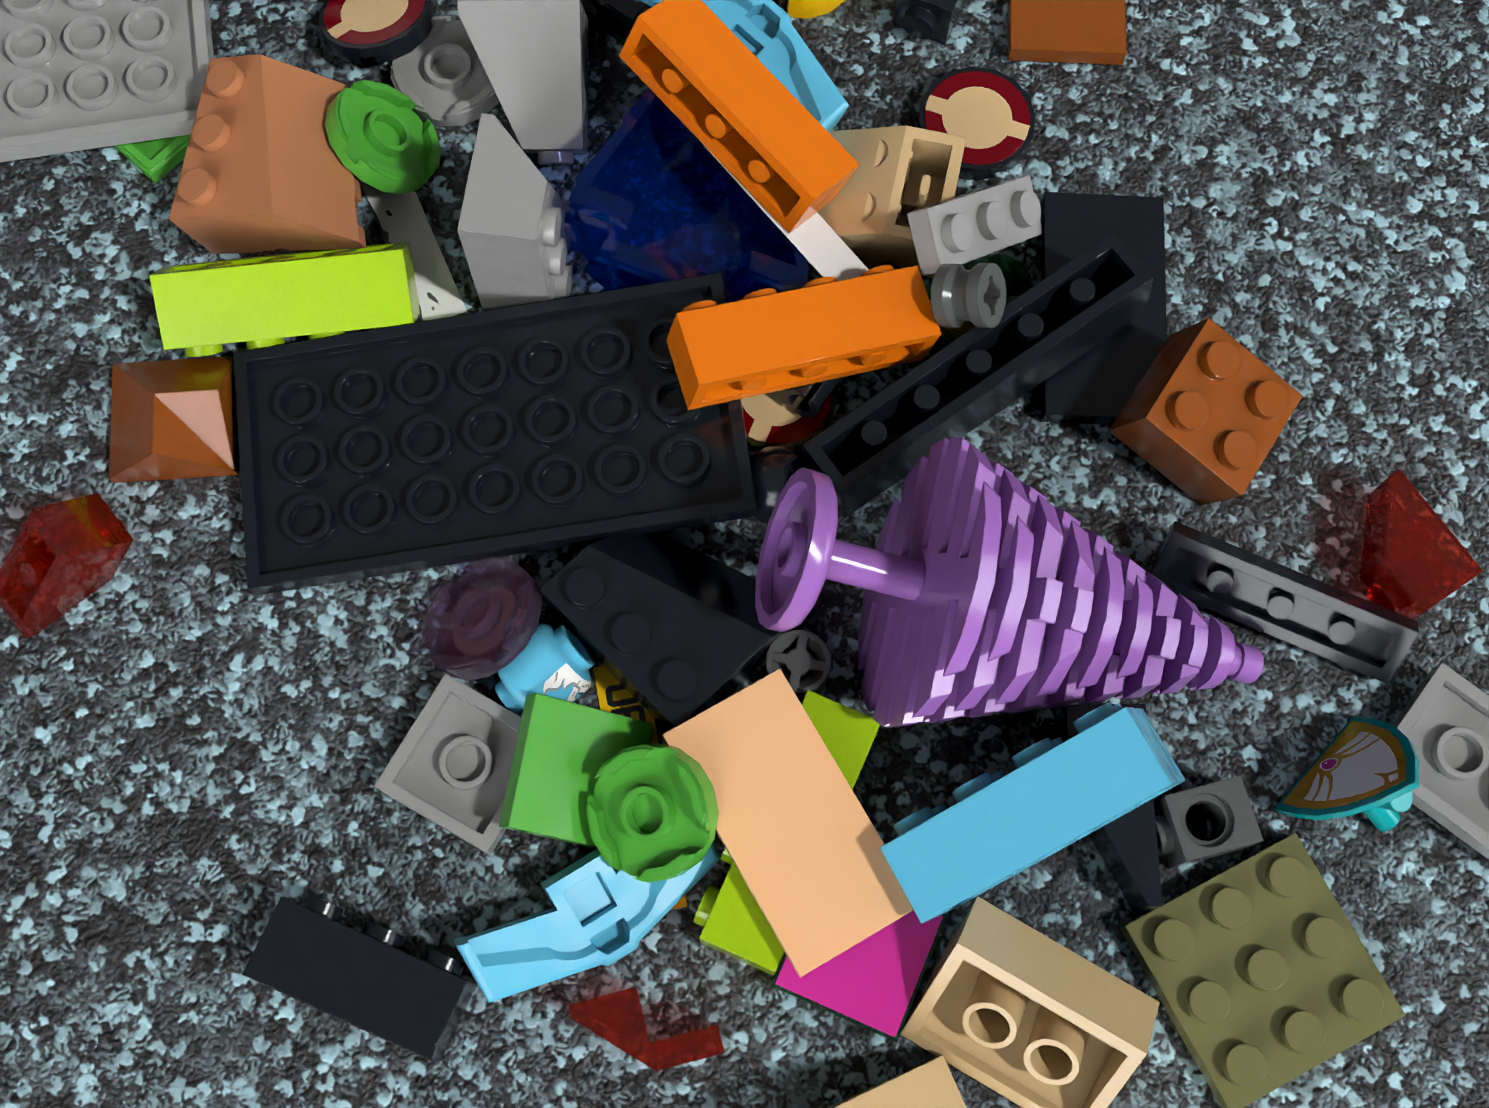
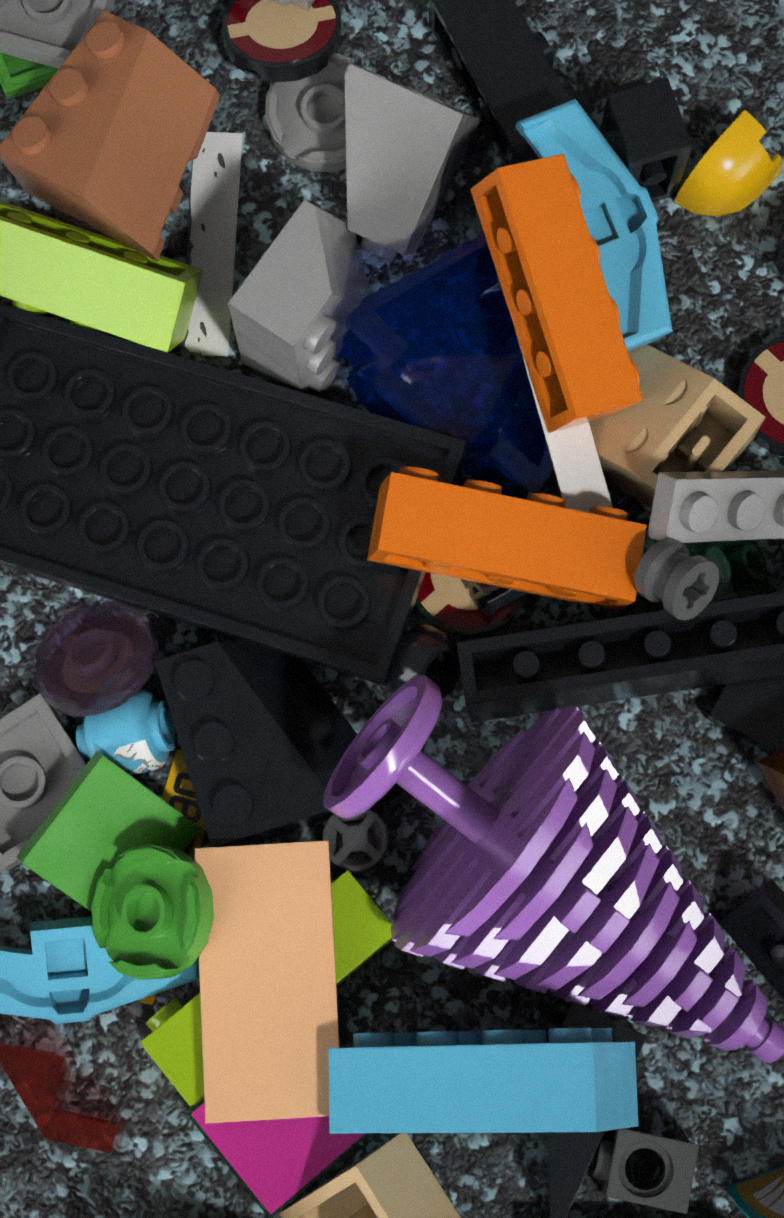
camera: 30 degrees right, 5 degrees up
(382, 137) = (226, 157): bright green tile -> none

